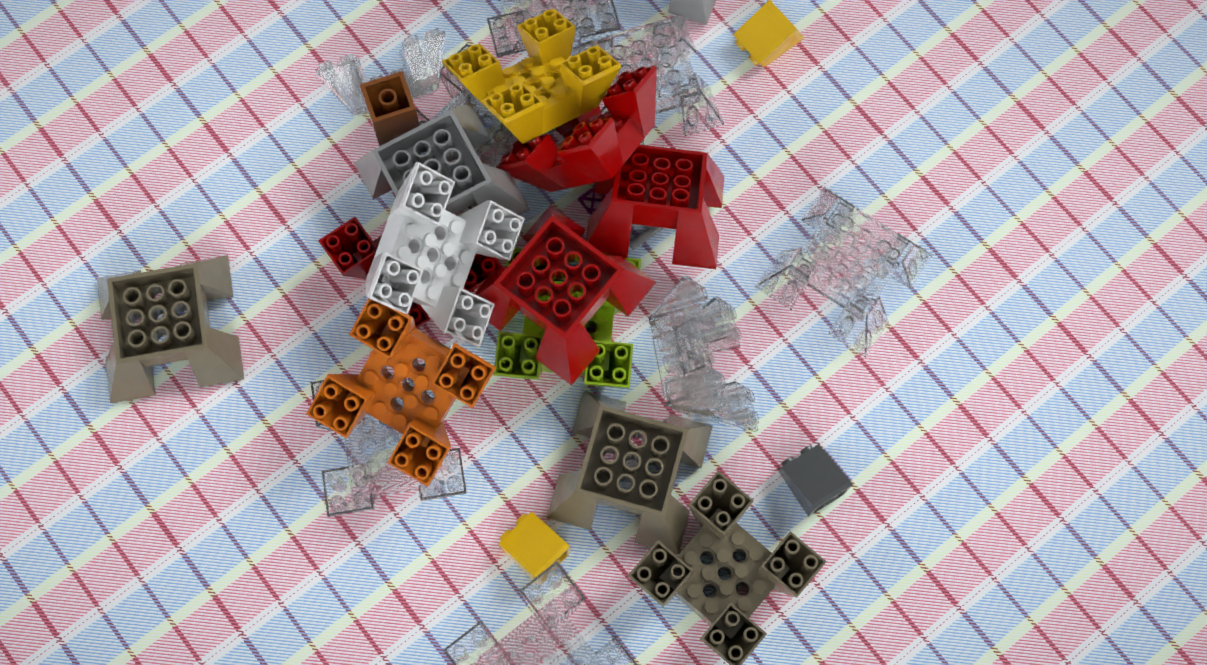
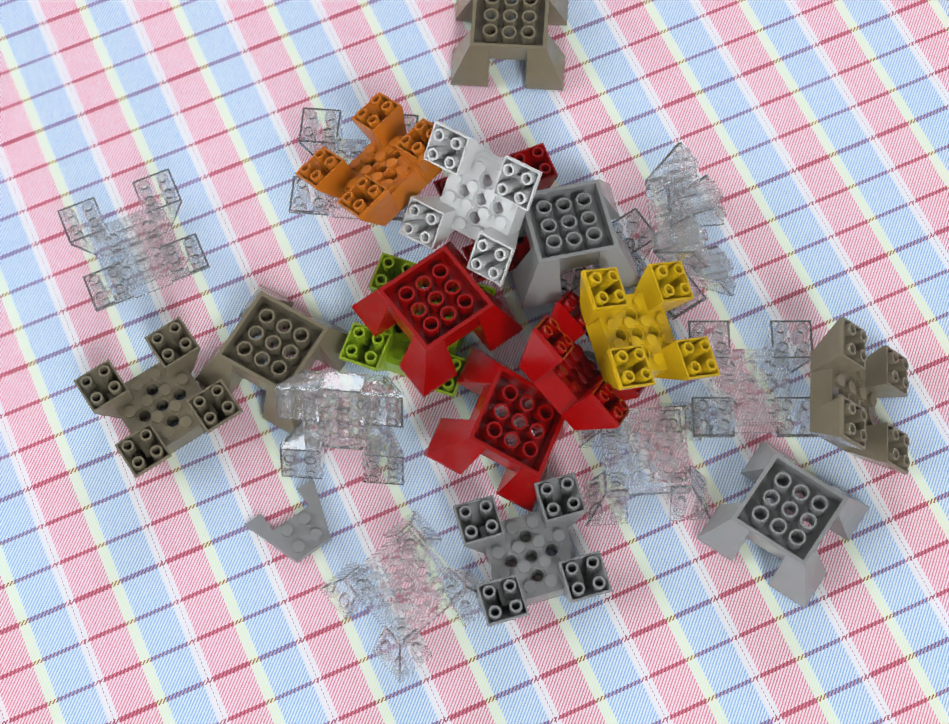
camera: 110 degrees right, 5 degrees down
(390, 106) = (640, 205): dark orange slope -> none
(533, 545) = (236, 265): yellow slope -> none
(767, 35) = (669, 592): yellow slope -> none
(812, 169) = (563, 574): none -> light grey slope
(813, 391) = (301, 533): none -> light grey wing
(814, 479) = (218, 504): dark grey slope -> none

